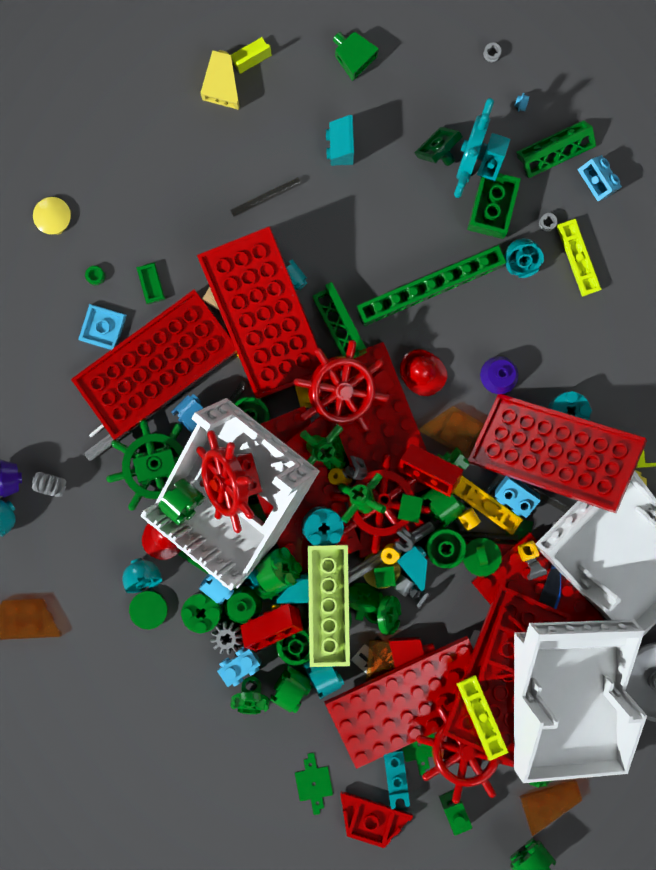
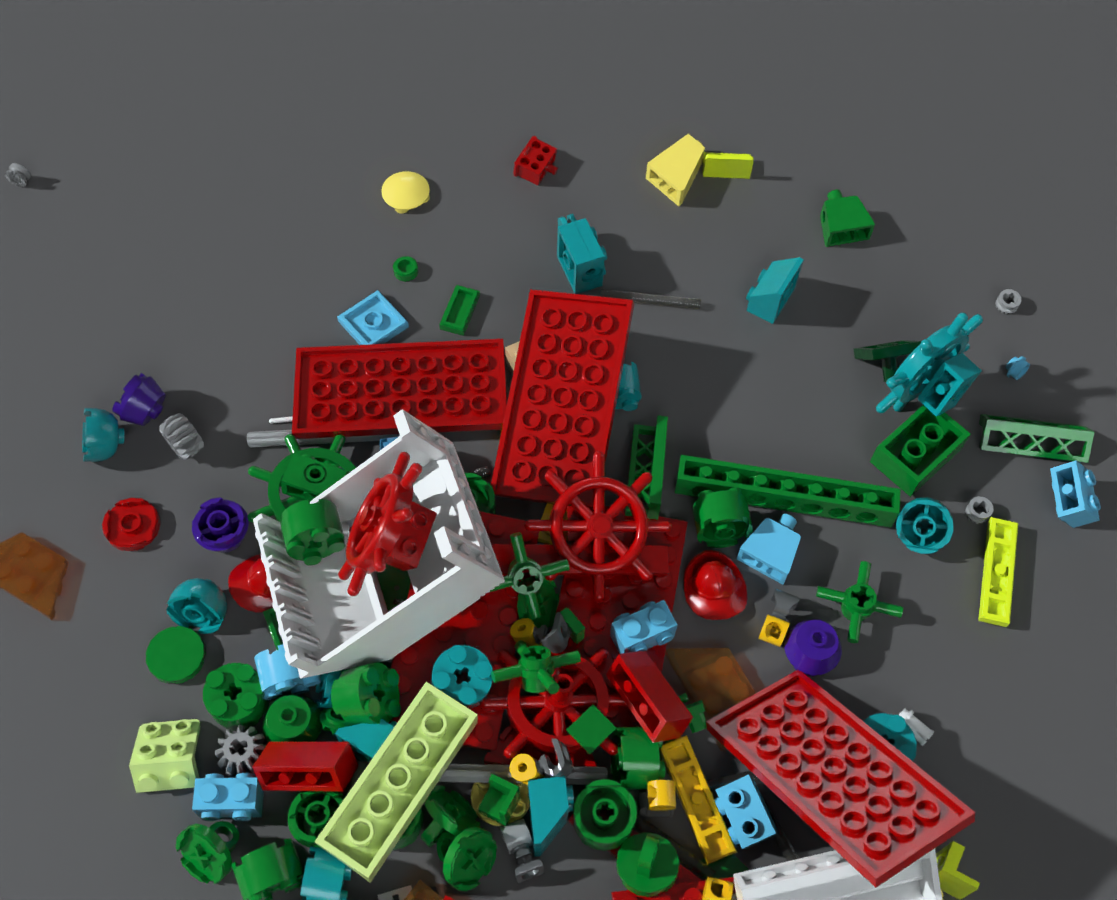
camera: 30 degrees right, 25 degrees down
(60, 553) = (131, 524): none -> red tile
(117, 134) = (535, 161): none -> red piece
(117, 524) = (220, 525): none -> dark purple cone
(187, 665) = (165, 756): none -> yellowish green bracket
(201, 195) = (580, 254): none -> teal brick
(360, 453) = (576, 628): none -> green tile
(403, 329) = (722, 517): none -> green brick
(405, 426) = (644, 628): none -> medium azure brick
(442, 327) = (771, 548): none -> medium azure torso
(471, 377) = (775, 625): none -> leg
(518, 328) = (855, 594): none -> green bar
(578, 386) = (919, 729): none -> white pin

